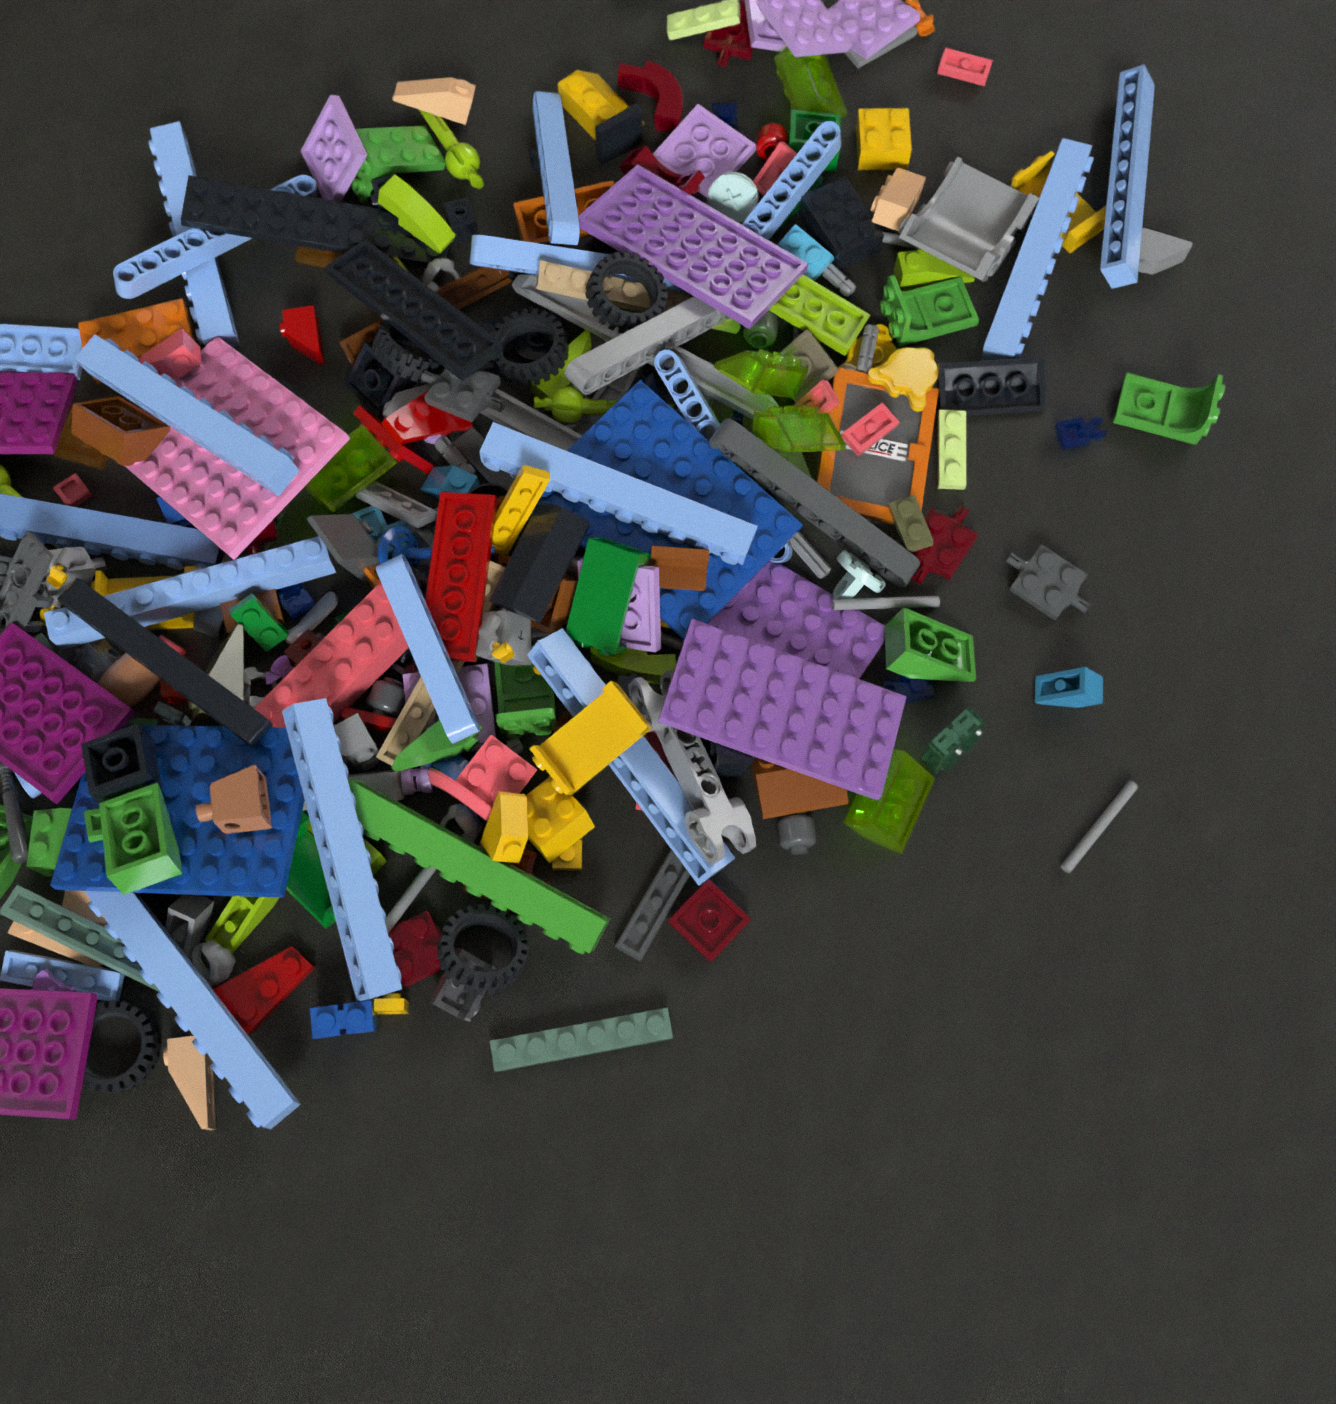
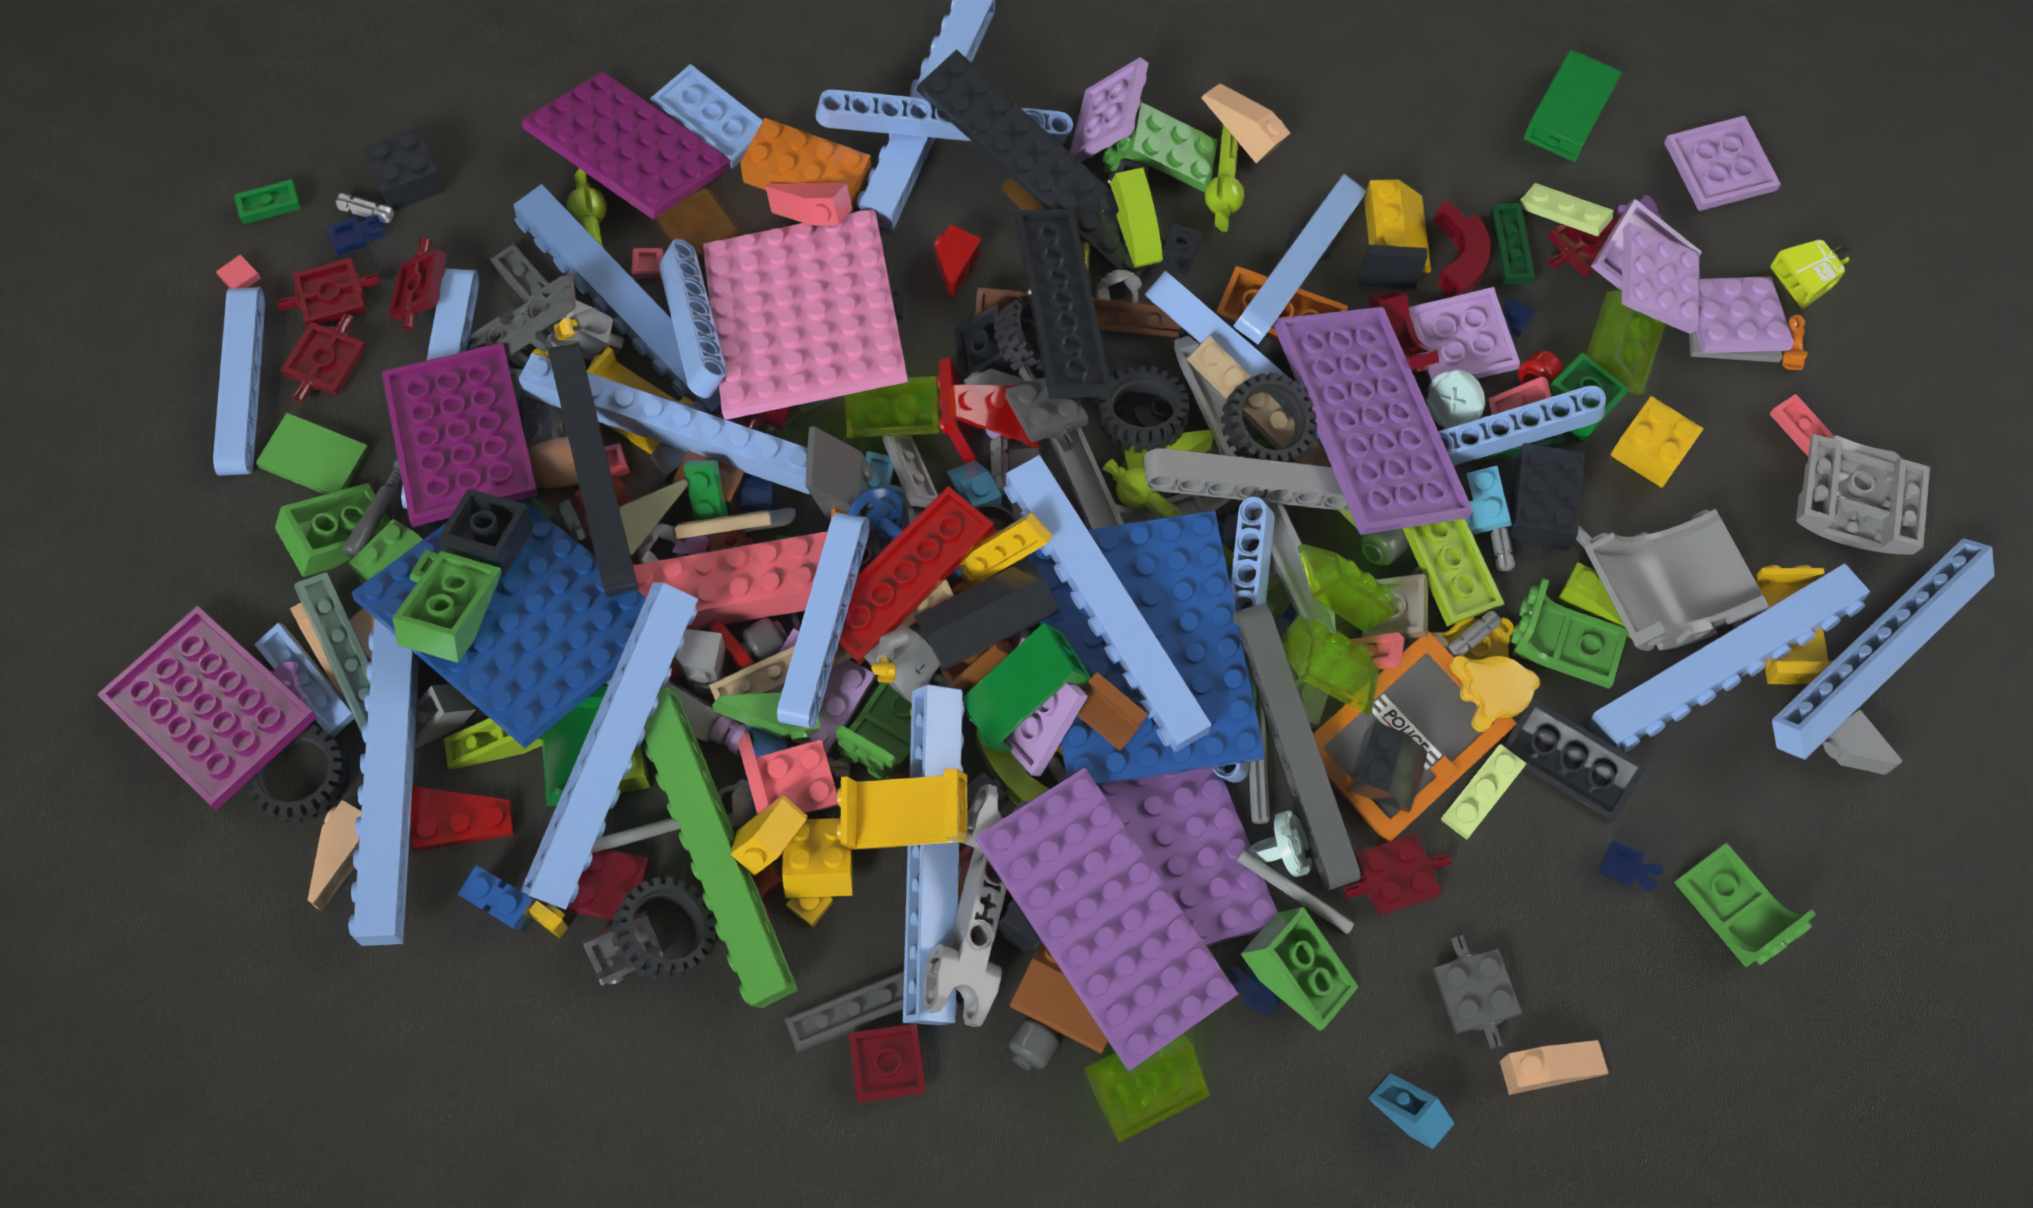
camera: 35 degrees right, 5 degrees down
(118, 429) = (724, 234): dark orange slope -> none
(146, 505) = (692, 319): none -> light blue beam
(188, 415) = (785, 264): light blue brick -> none
(220, 961) = (439, 765): light grey piece -> none
(238, 802) = (553, 636): nougat torso -> none
(292, 636) = (723, 524): none -> tan tile
(581, 1039) = (688, 1081): sand green plate -> none
(684, 67) = (1512, 243): none -> dark green plate
(870, 429) = (1412, 713): coral plate -> none
(880, 475) = (1388, 767): none -> black slope
(897, 198) = (1621, 509): light nougat brick -> none
(910, 524) = (1379, 833): olive plate -> none
(957, 737) = (1250, 1071): clear green piece -> none
(1040, 87) = (1863, 496): none -> light grey slope
(1130, 595) = (1552, 1065): none -> light nougat slope

